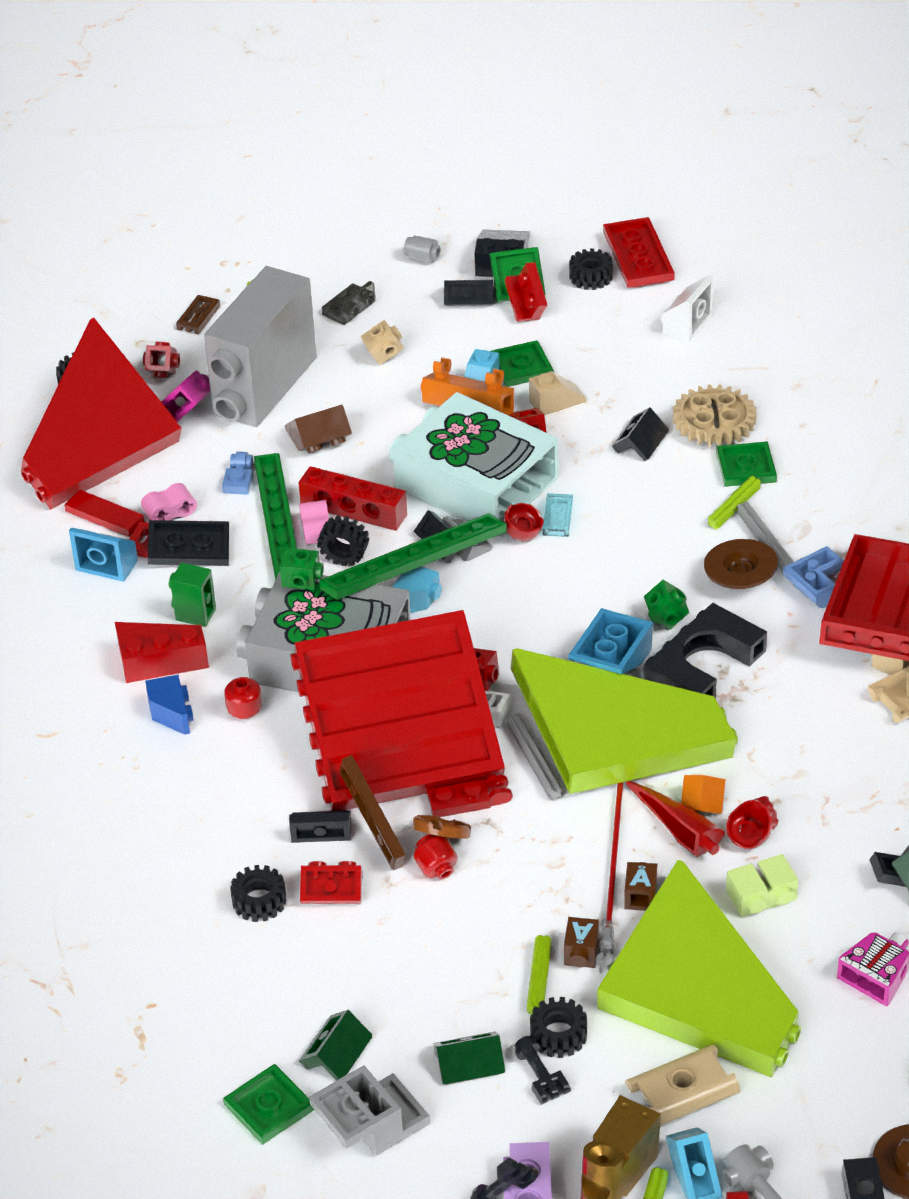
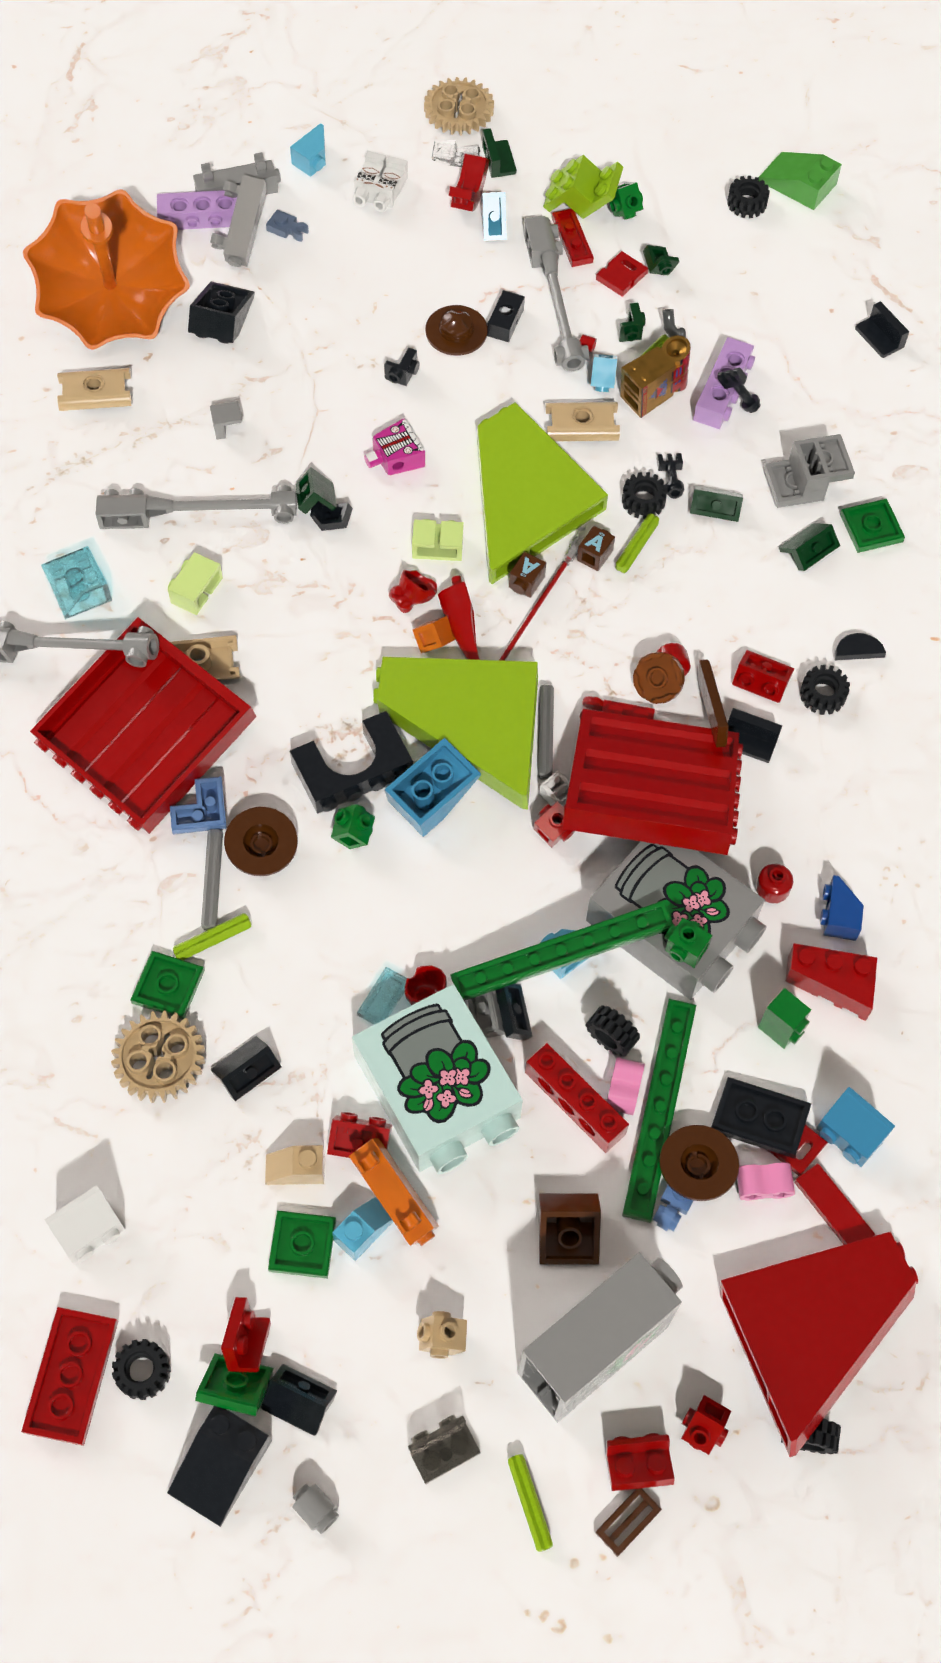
camera: 160 degrees left, 20 degrees up
(191, 335) = (639, 1462): none -> red bracket
(192, 390) = (698, 1334): dark pink torso -> none
(229, 488) = (699, 1163): none -> reddish brown hat
(236, 956) = (859, 647): none -> black tile

